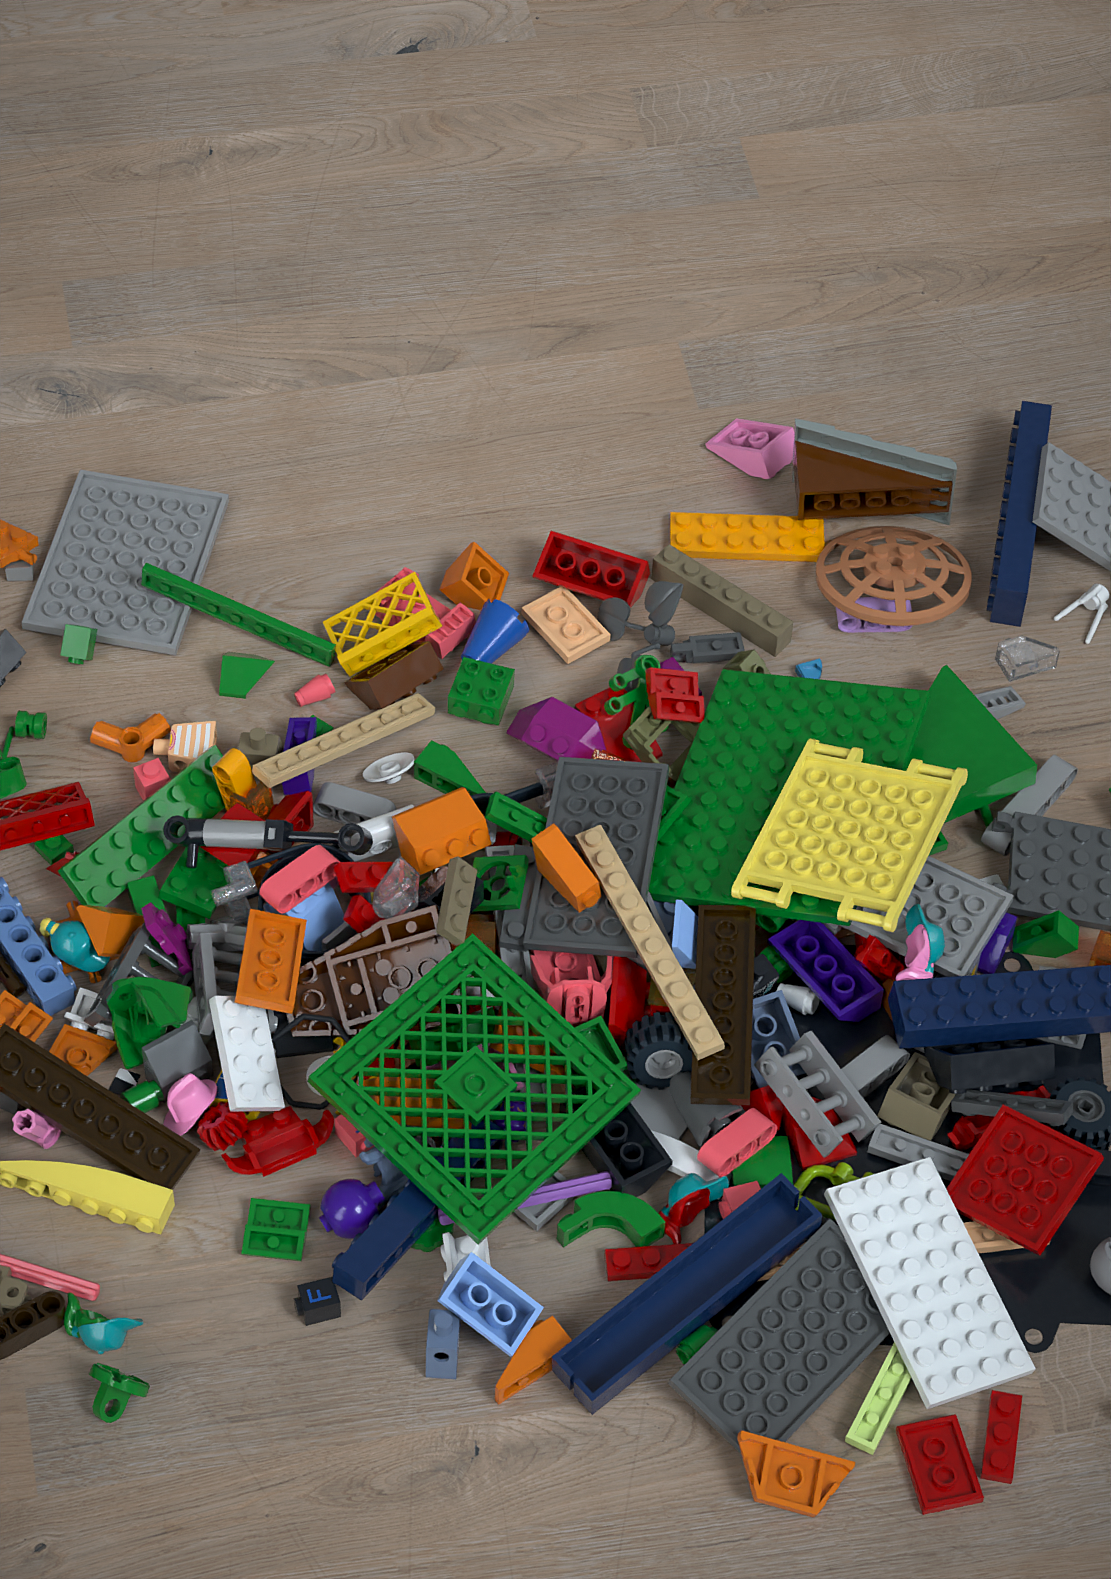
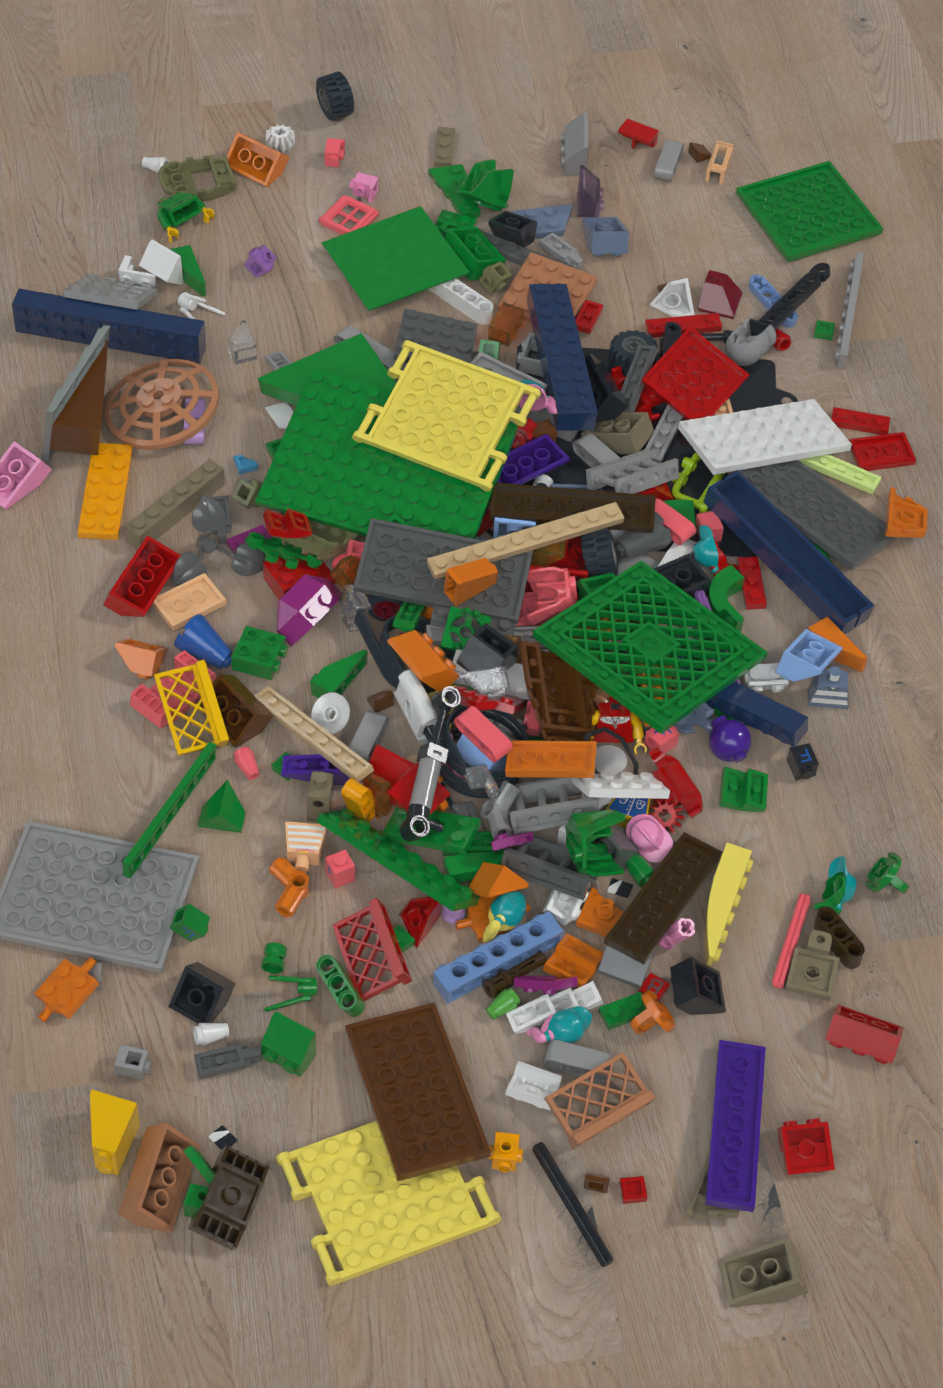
camera: 90 degrees left, 0 degrees up
(456, 901) = (511, 631): dark tan plate -> none

